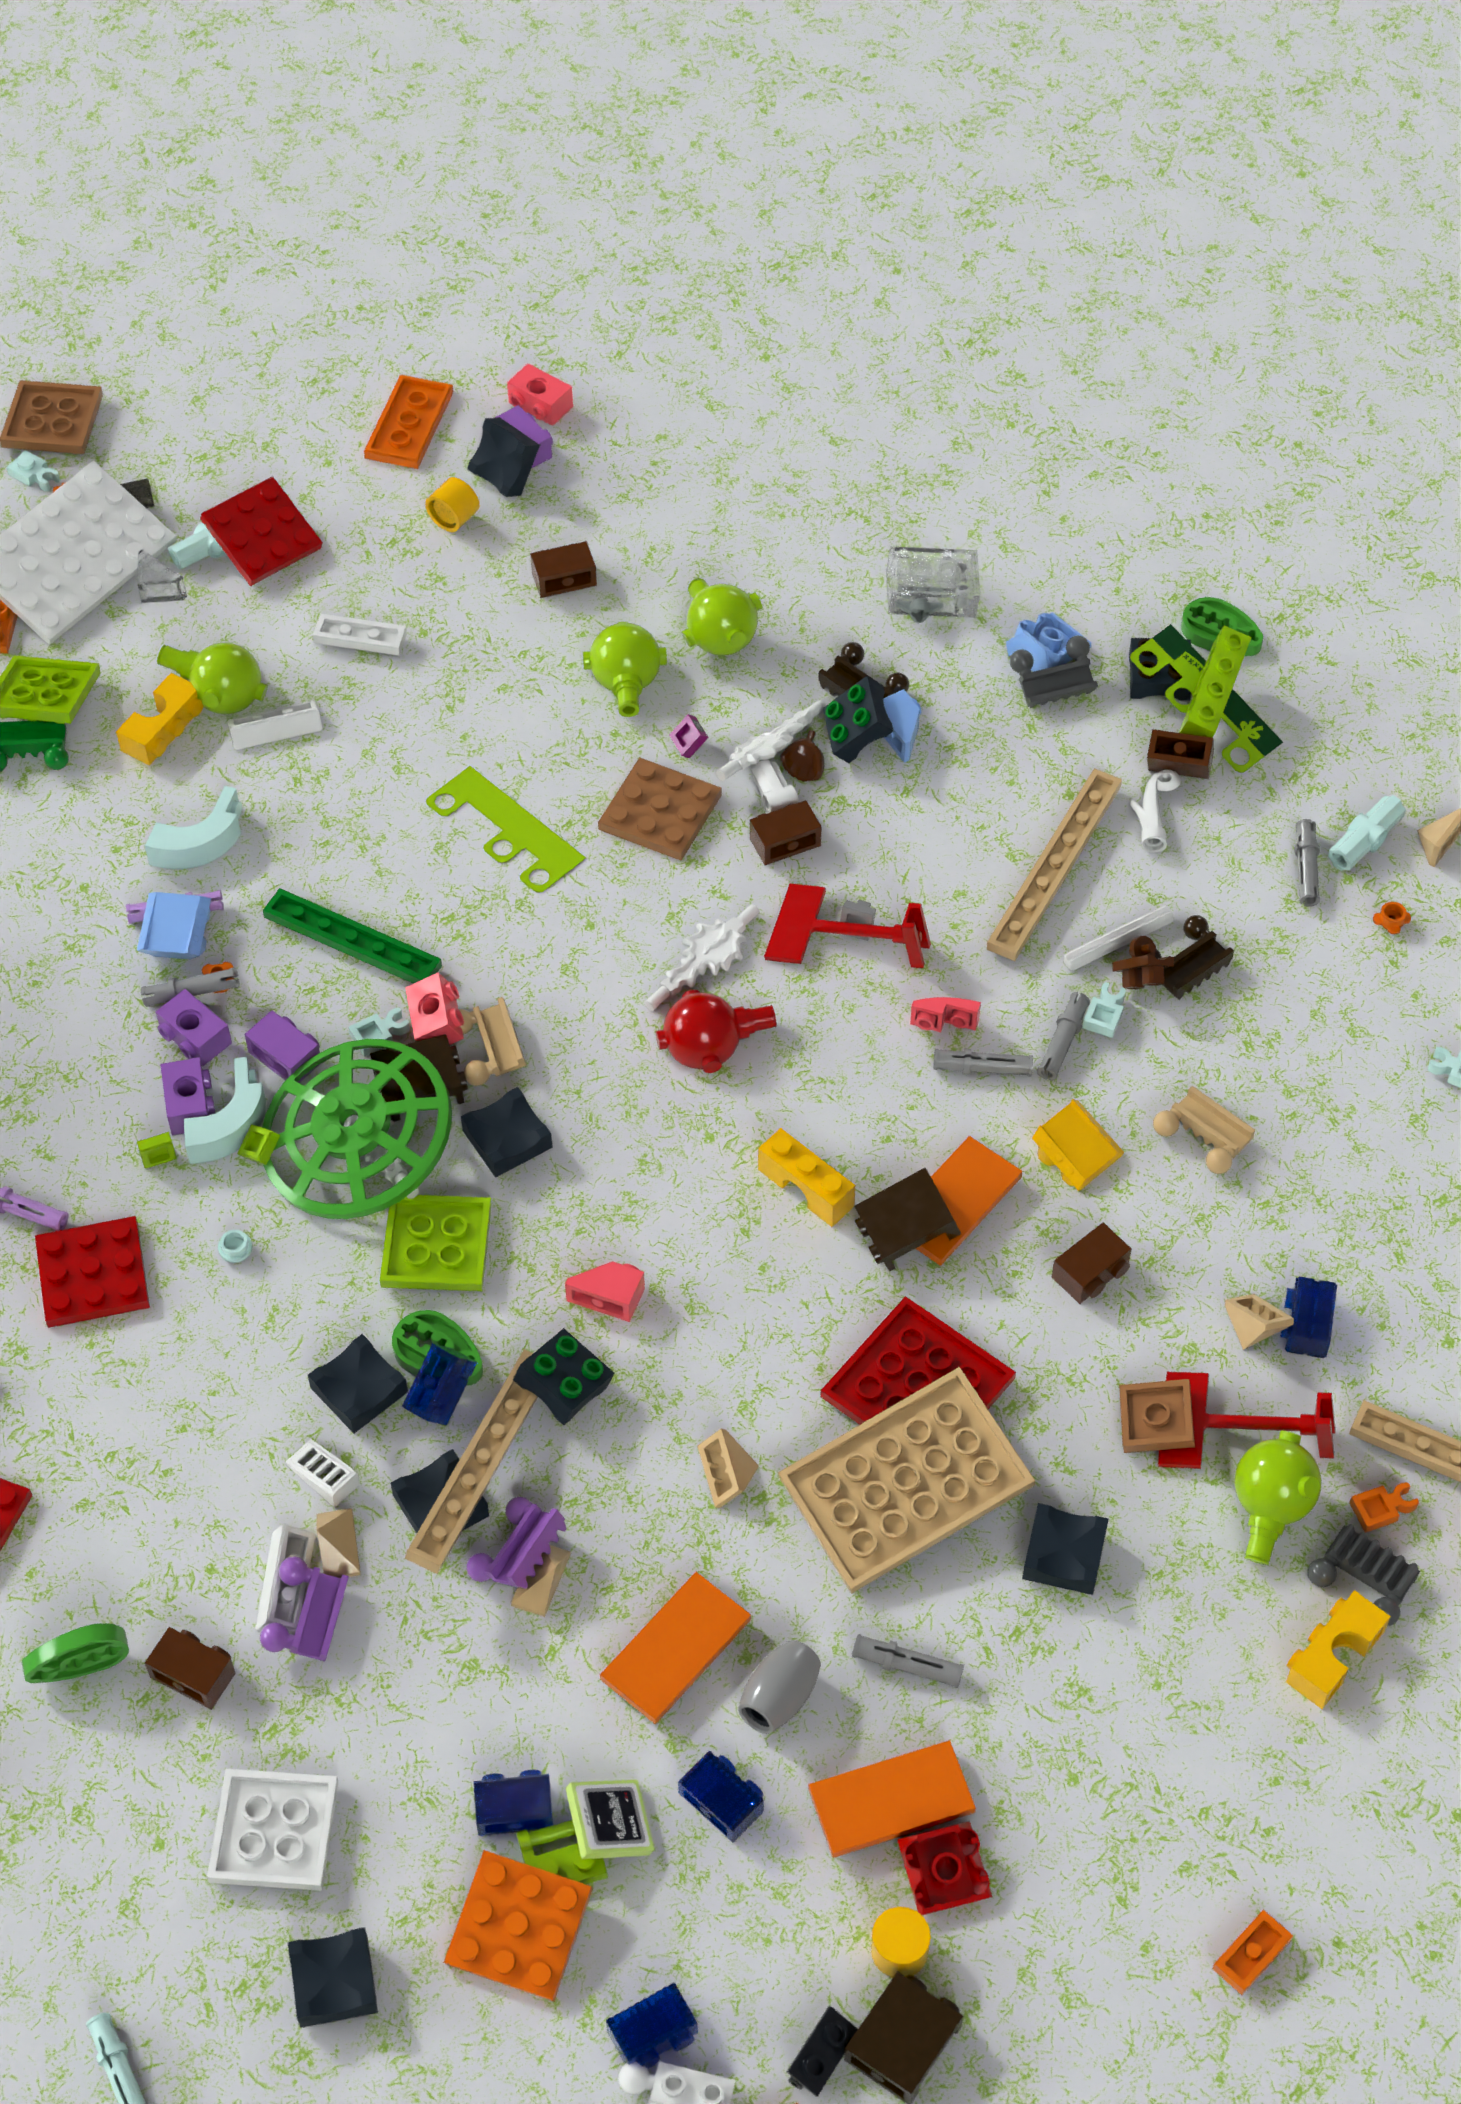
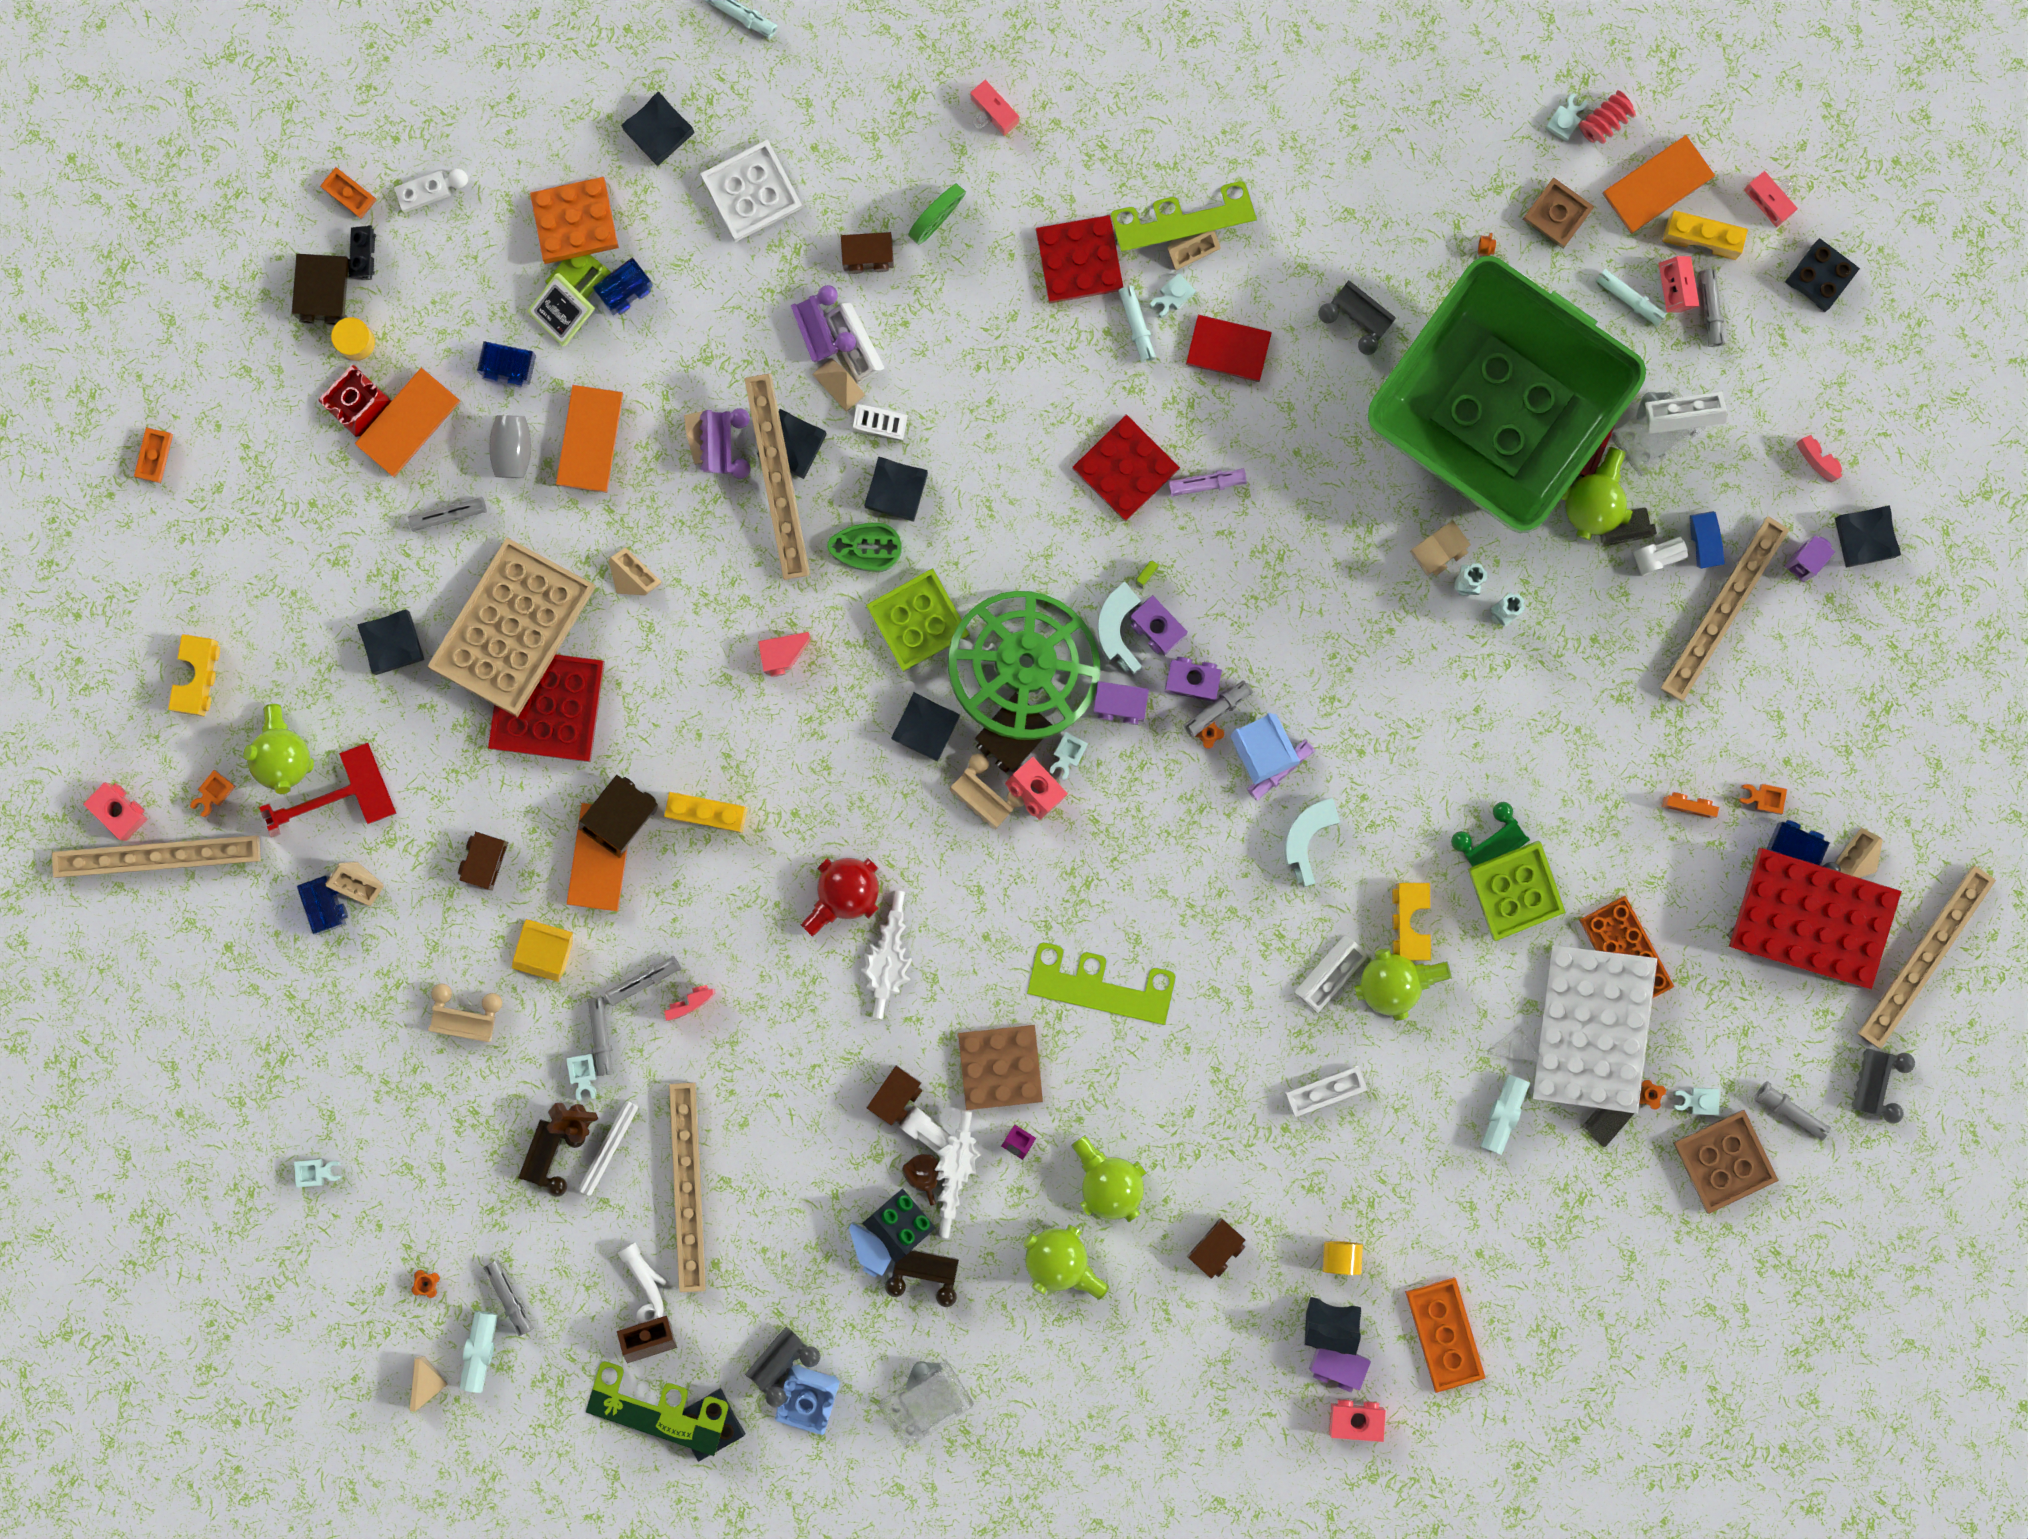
camera: 150 degrees right, 30 degrees up
(235, 1246) = (1046, 539): light aqua plate -> none
(258, 1144) = (1083, 618): lime tile -> none
(261, 531) = (1468, 1139): red plate -> none
(351, 937) = (1139, 819): green plate -> none
(439, 1384) = (839, 512): clear blue brick -> none
(564, 1375) = (767, 568): black brick -> none
(653, 2027) = (463, 209): clear blue brick -> none
(799, 920) = (839, 1024): red piece -> none
(858, 913) = (797, 1049): light grey tile -> none
(1156, 1416) = (382, 770): medium nougat plate -> none
(1215, 683) = (649, 1412): lime brick -> none
(1219, 614) = (690, 1483): bright green piece -> none
(1368, 1564) = (202, 749): dark grey gear -> none

